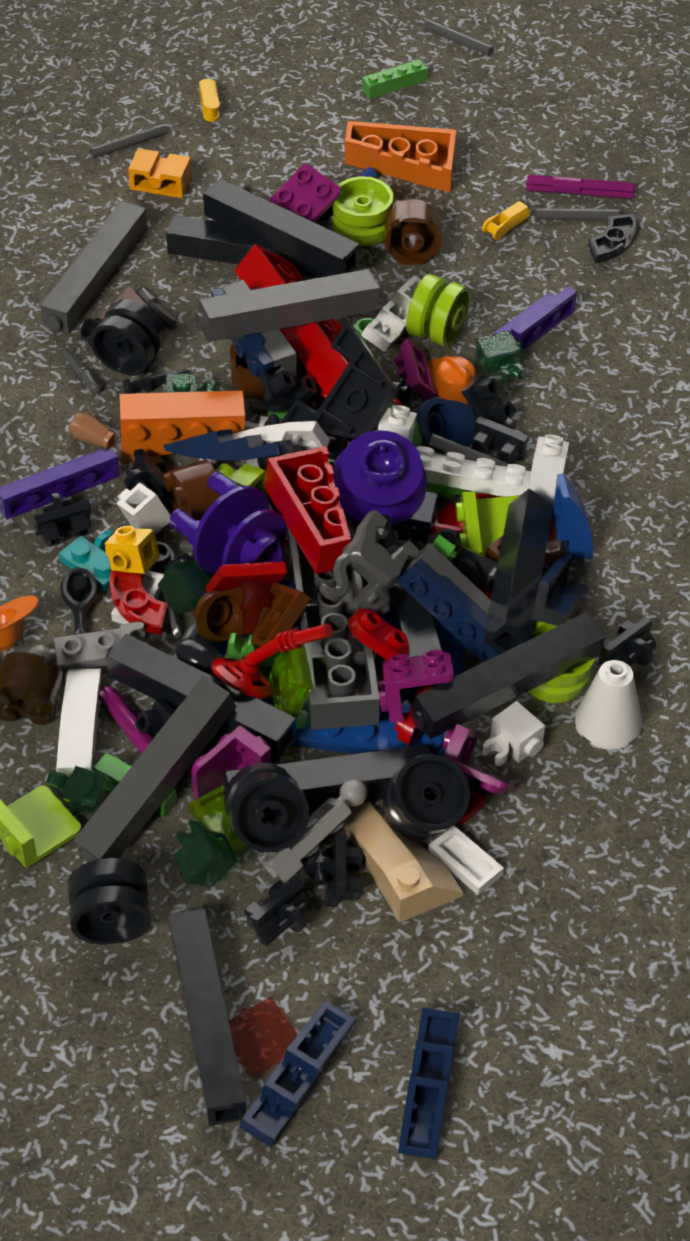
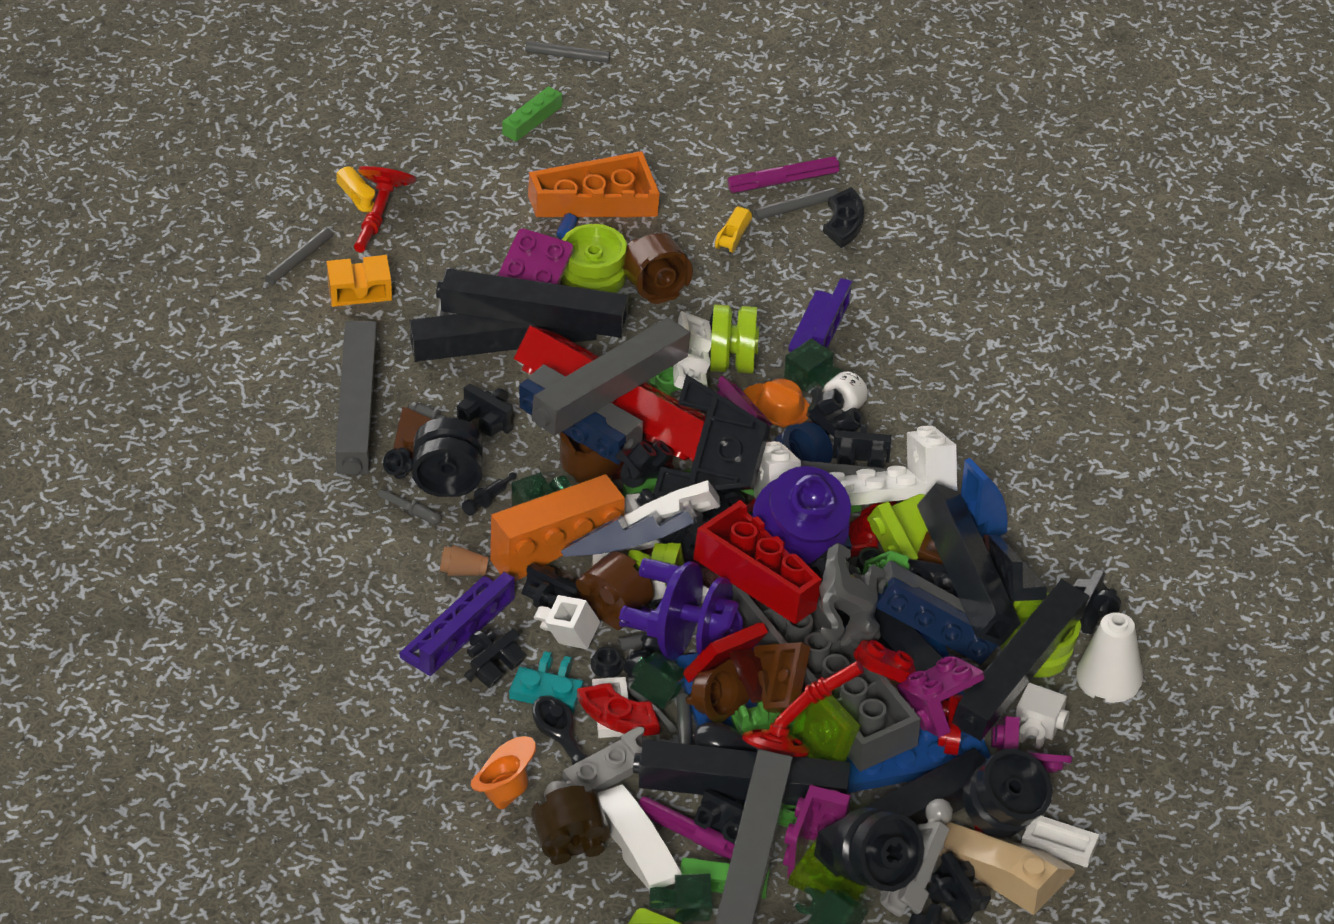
camera: 25 degrees left, 5 degrees down
(132, 550) = (589, 662): yellow brick -> none
(187, 302) = (490, 407): none -> black hips
(233, 99) = (386, 181): none -> red dish
(516, 386) = (851, 387): none -> white head

